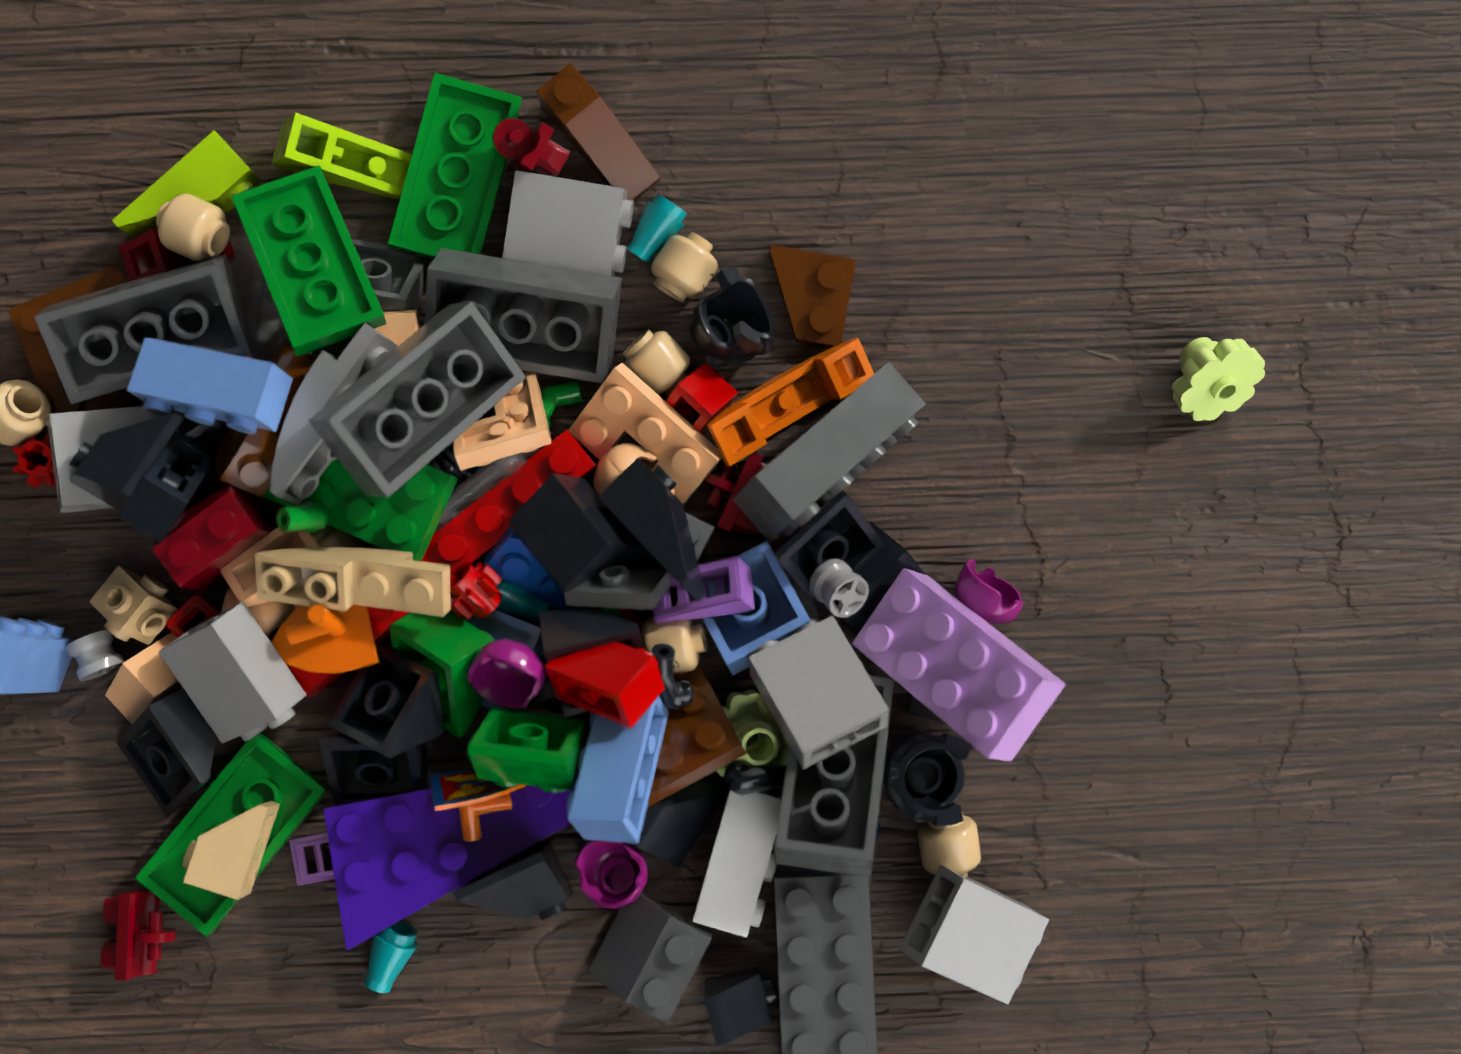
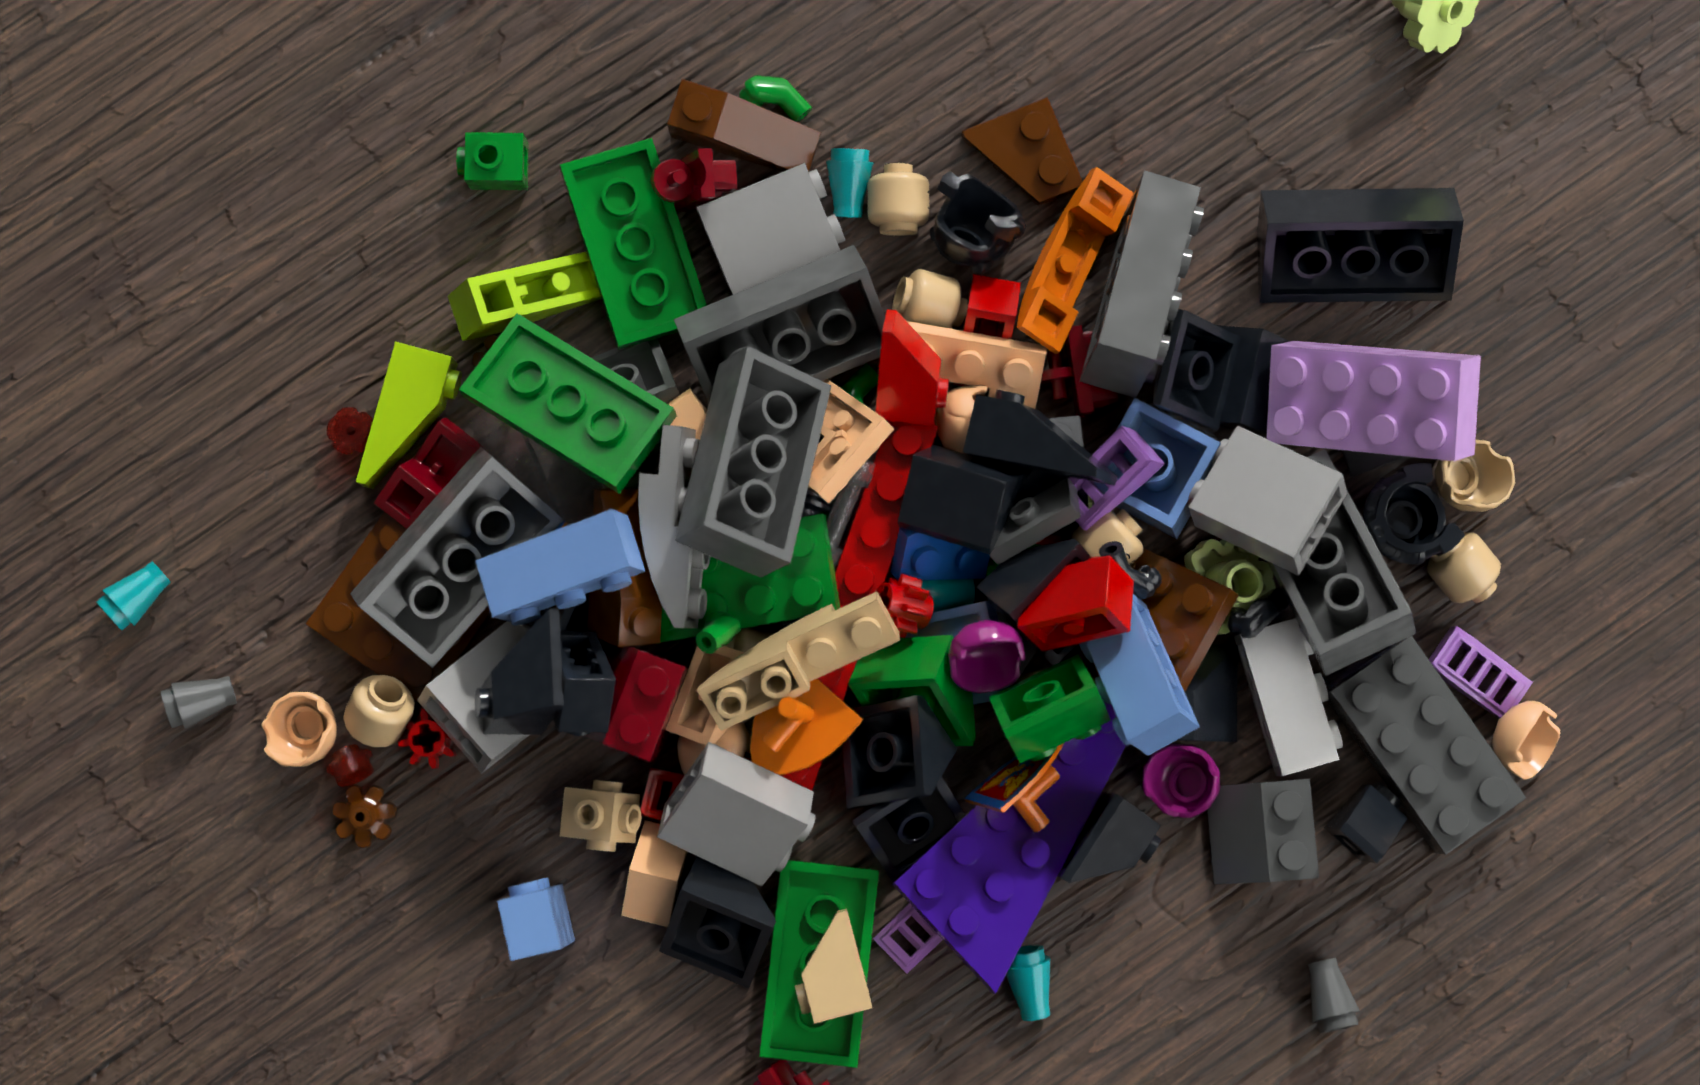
camera: 30 degrees left, 0 degrees up
(94, 655) = (591, 883): light grey wheel -> none
(134, 172) = (338, 427): none -> clear red plate
(192, 227) = (438, 440): tan head -> none
(388, 39) = (494, 161): none -> green brick
(594, 406) = (908, 375): none -> red slope
(646, 122) = (776, 91): none -> green arm
(838, 588) = (1225, 399): light grey wheel -> none
(888, 904) = (1446, 650): none -> medium lavender slope
(910, 1015) = (1525, 738): none -> light nougat hair
(974, 935) = (1536, 629): brick -> none
(987, 594) = (1358, 323): magenta hair -> none
(1005, 784) = (1476, 481): none -> tan hair
(1029, 531) = (1358, 245): none -> black slope

